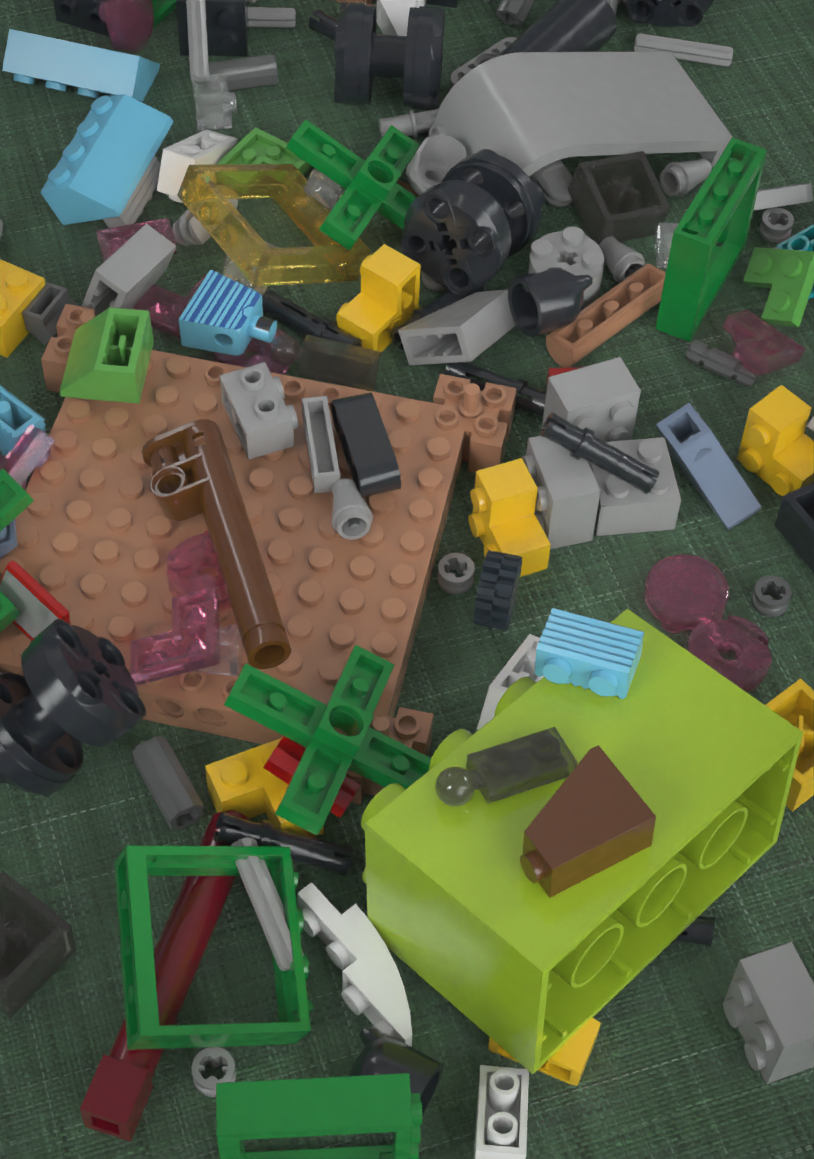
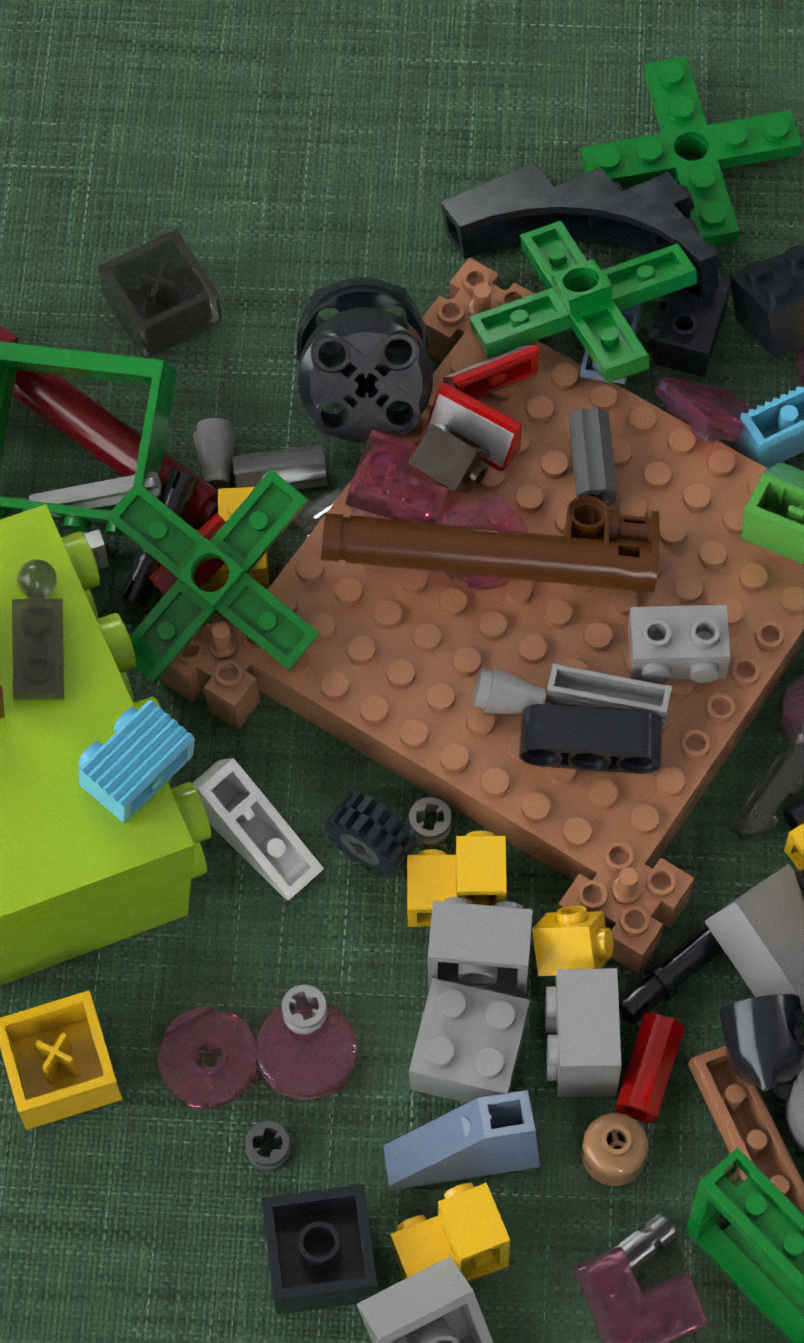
camera: 115 degrees right, 10 degrees up
(100, 511) = (593, 455): none -> dark grey axle
(100, 598) = (478, 423): none -> slope
(138, 607) = (451, 458): none -> dark brown brick
(168, 835) = (215, 447): none -> light grey cone
(197, 740) = (315, 511): none -> clear slope
(524, 420) = (571, 940): none -> yellow brick
(585, 445) = (474, 970): black pin -> none
(662, 381) = (609, 1164): none -> medium nougat head
(663, 578) = (296, 1022): none -> light grey bush

